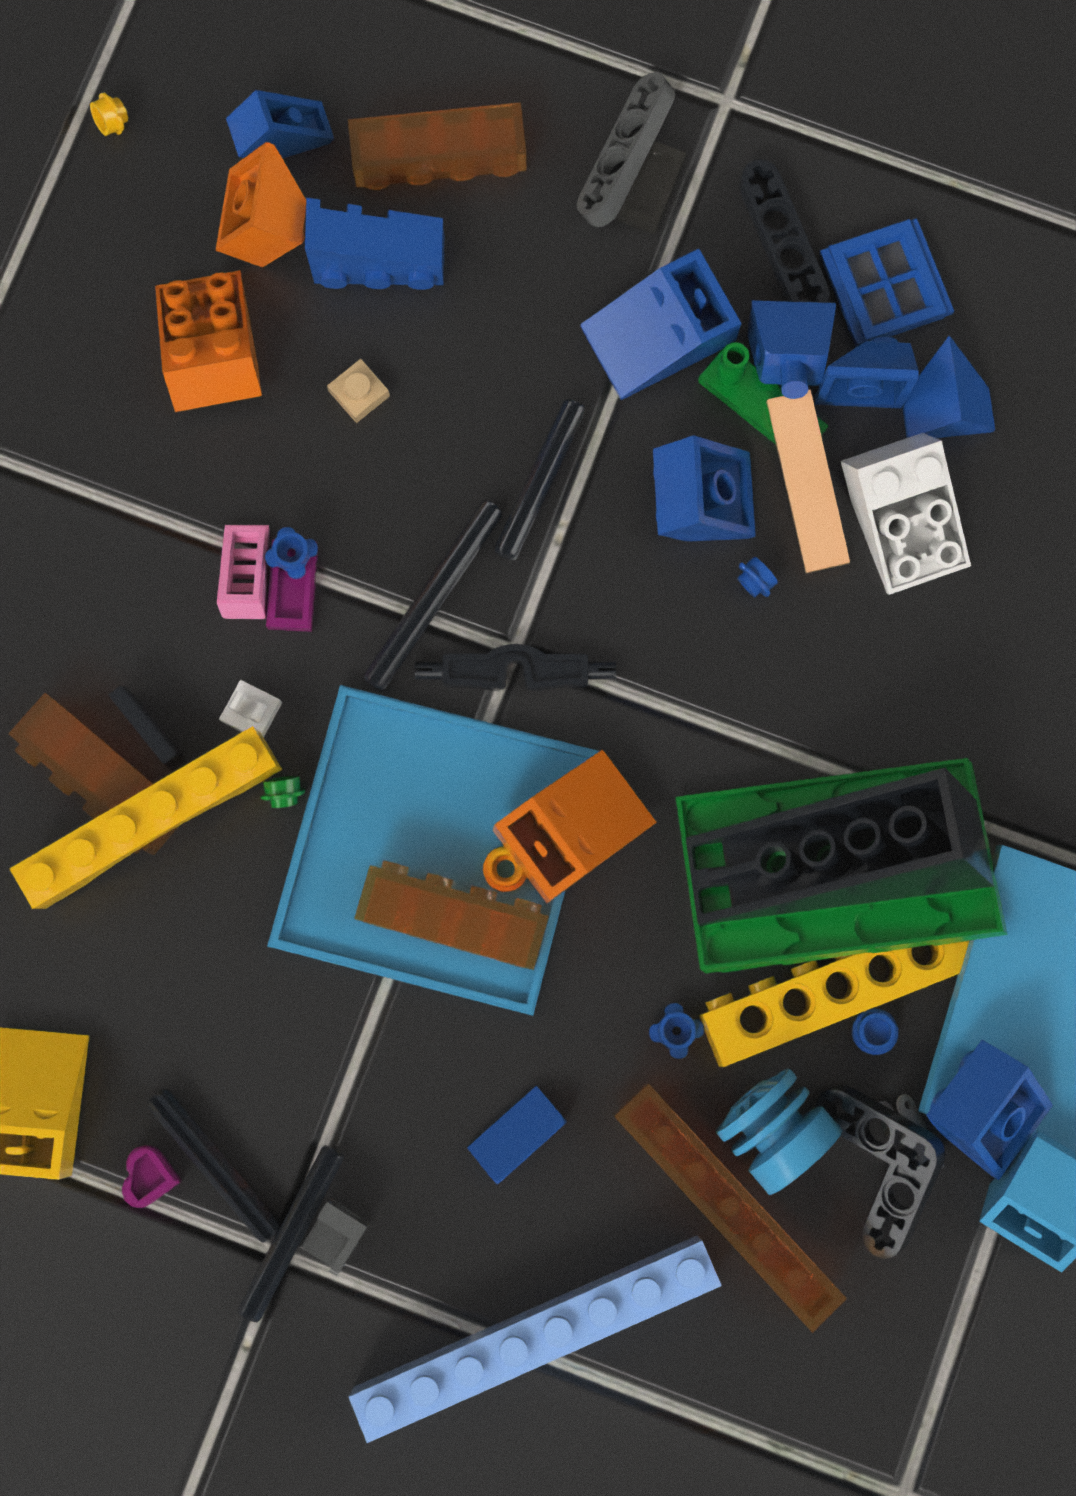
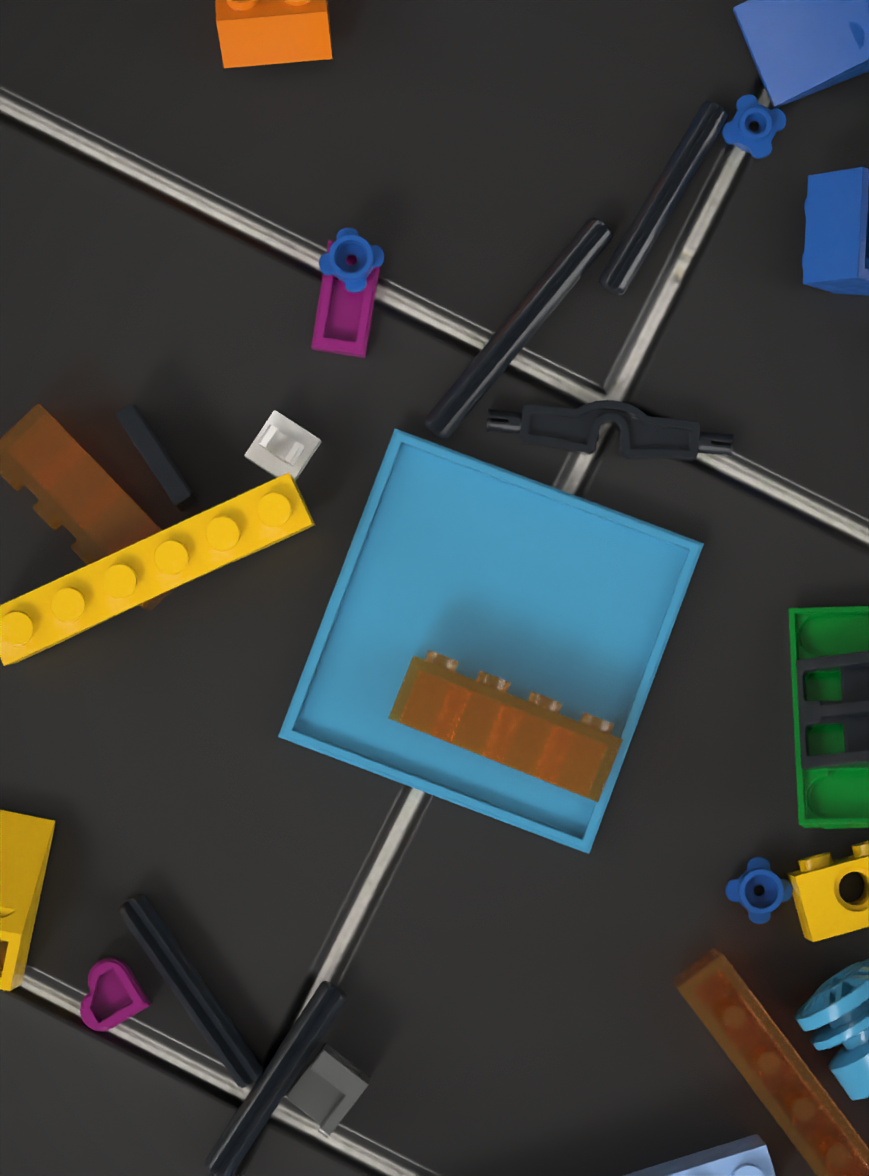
camera: 10 degrees right, 5 degrees up
(244, 599) = (283, 309): bright pink slope -> none
(282, 791) = (313, 551): green plate -> none
(358, 390) = (450, 63): tan plate -> none
(493, 878) = (591, 669): plate -> none
(516, 1135) = (555, 994): blue slope -> none
(573, 825) = (663, 633): orange slope -> none
(611, 427) = (754, 142): none -> blue plate

